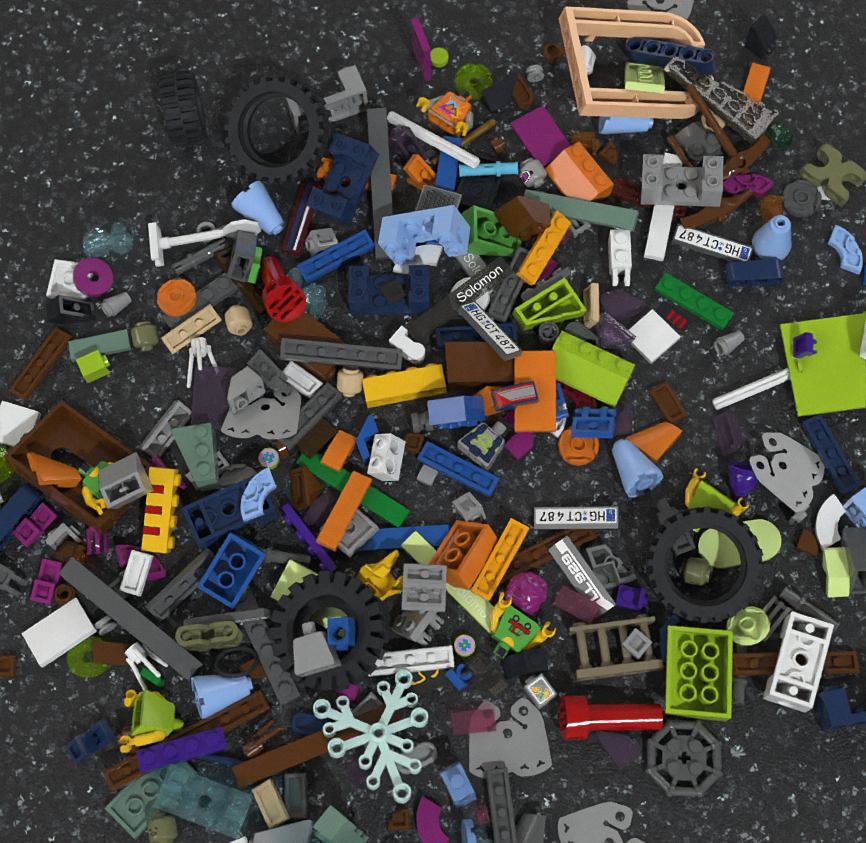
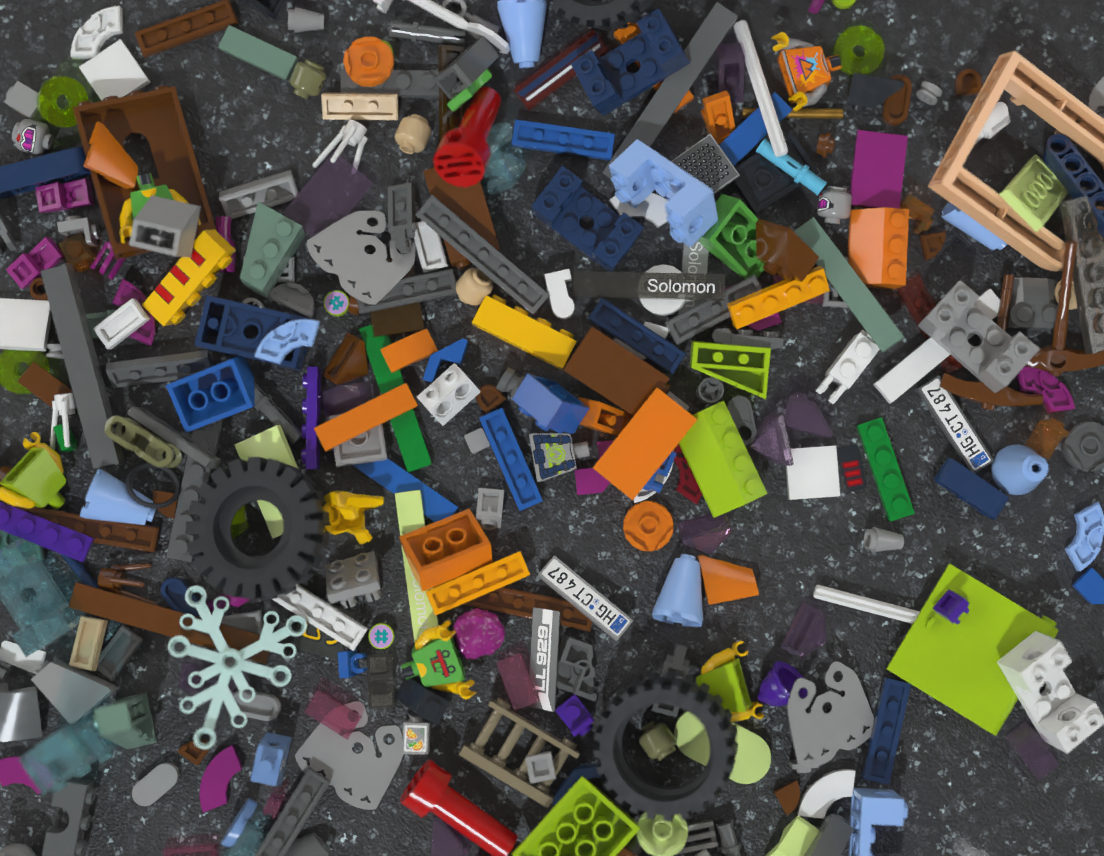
camera: 30 degrees right, 15 degrees up
(93, 366) = (234, 71): lime brick -> none
(244, 388) = (362, 214): light grey slope -> none
(312, 652) = (222, 543): light grey torso -> none
(320, 240) = (561, 111): light grey bracket -> none
(334, 625) = (270, 545): blue brick -> none
(393, 292) = (588, 225): clear smoke tile -> none
(424, 587) = (377, 559): light grey slope -> none
(490, 331) = (649, 346): tile -> none
(514, 395) = (618, 435): slope -> none
(591, 303) = (777, 394): tan tile -> none
(593, 423) = (674, 524): blue plate -> none
(668, 403) = (770, 553): reddish brown tile -> none

